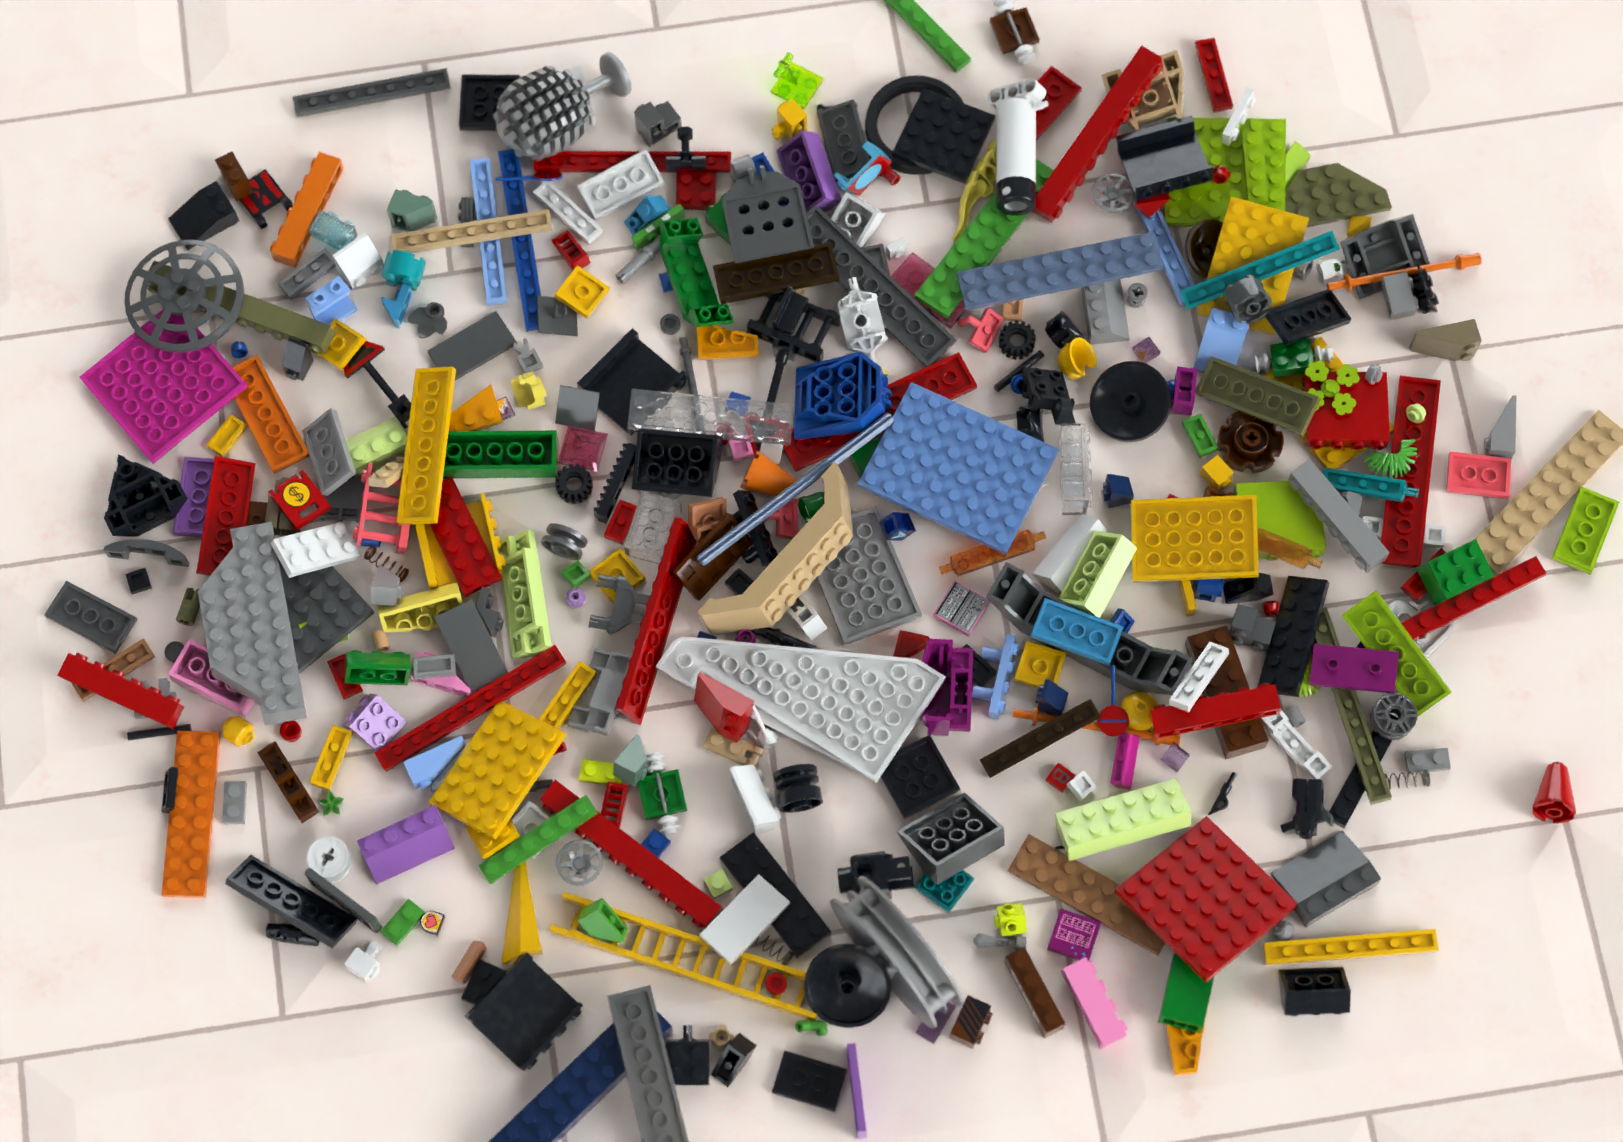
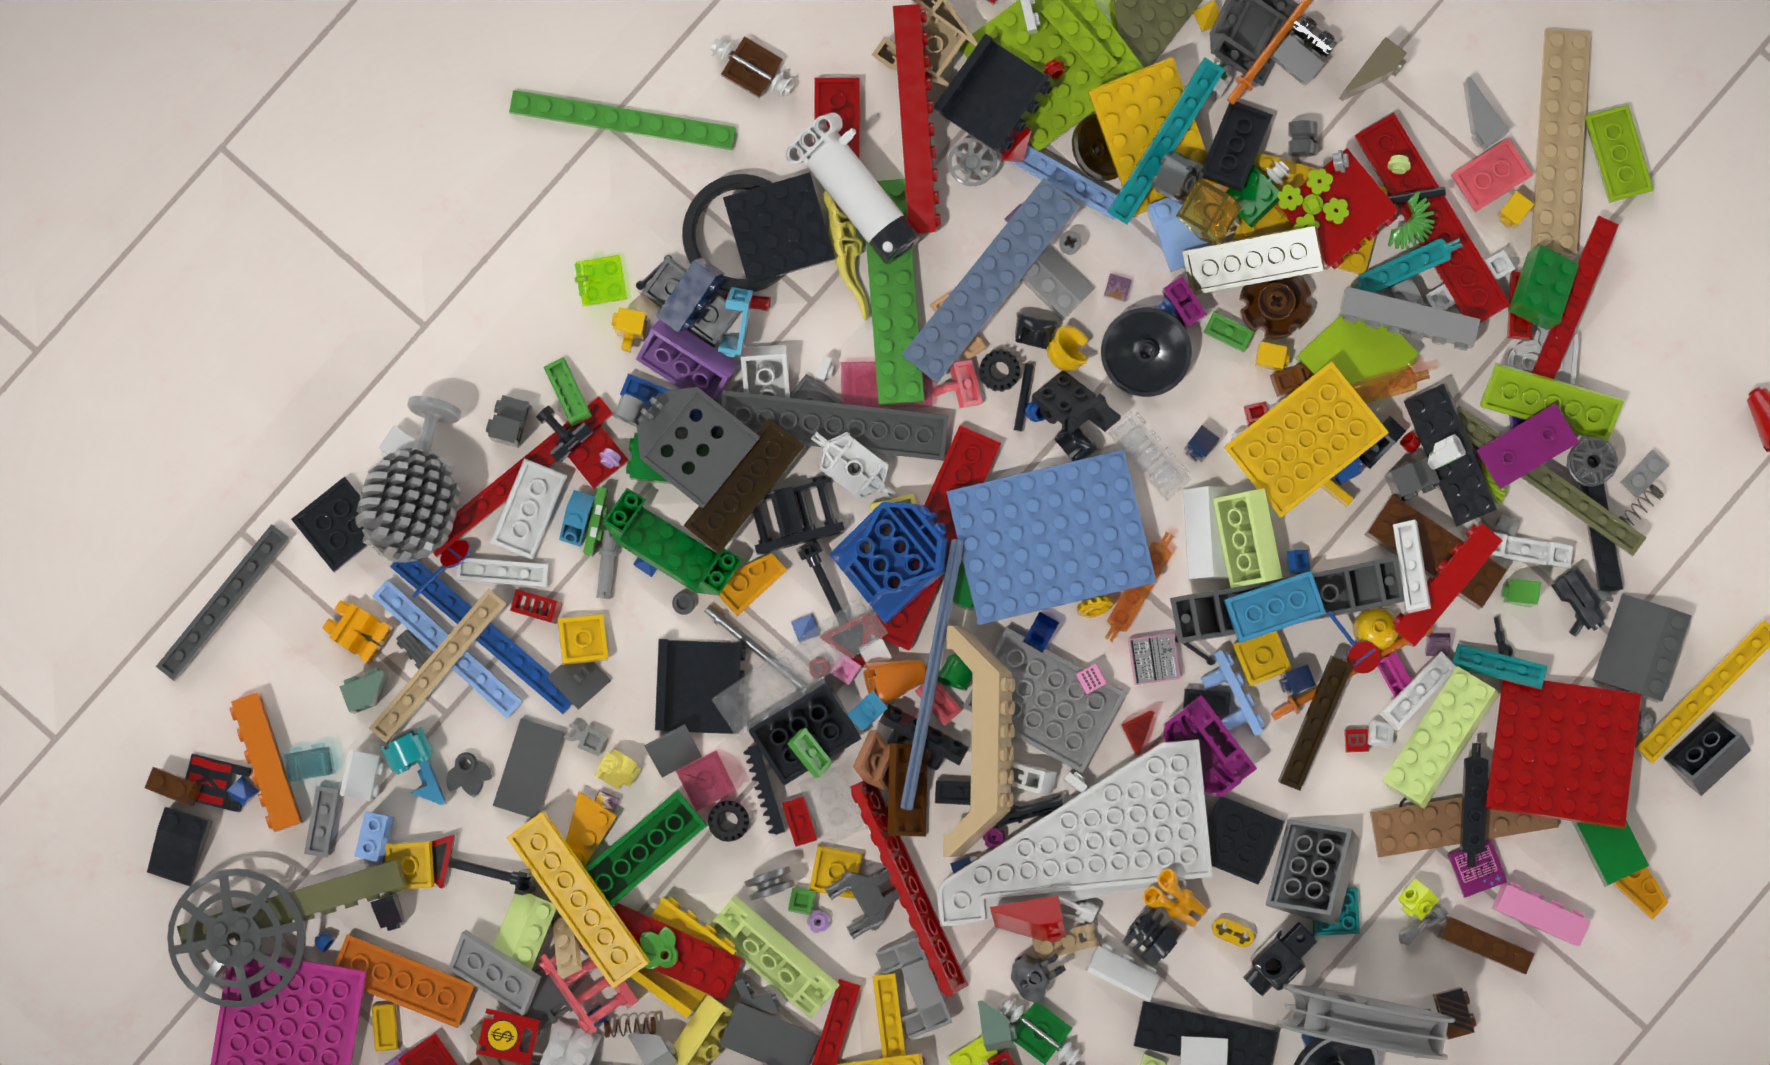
camera: 45 degrees left, 15 degrees up
(275, 215) = (242, 791): none -> blue slope
(441, 168) = (350, 629): none -> light orange hips
(451, 523) = (656, 945): none -> bright green plate
(667, 475) = (810, 753): none -> bright green plate
(690, 750) = (1035, 974): none -> black hinge
(702, 191) = (610, 458): none -> lavender plate
(712, 133) = (567, 391): none -> bright green plate
(729, 483) = (867, 711): none -> dark azure slope
(829, 783) = (1185, 899): none -> light orange piece
(834, 643) = (1076, 781): none -> white plate
(847, 127) = (691, 295): none -> dark blue brick
(862, 835) = (1235, 927): none -> yellow beam
(905, 583) = (1090, 679): none -> bright pink tile
(949, 539) = (1094, 606): none -> yellow gear
(991, 610) = (1209, 660): none -> black hinge
(1105, 887) = (1474, 805): none -> black plate
(1132, 772) = (1418, 690): none -> white plate
(1208, 805) = (1500, 666): none -> teal plate
(1251, 339) = (1208, 212): none -> clear yellow slope
(1266, 767) = (1521, 592): none -> bright green slope
(1290, 625) = (1446, 452): none -> white rock
(1360, 349) = (1302, 137): none -> dark grey wheel
(1420, 448) = (1429, 193): none -> black bar
(1476, 510) = (1514, 210): none -> yellow brick

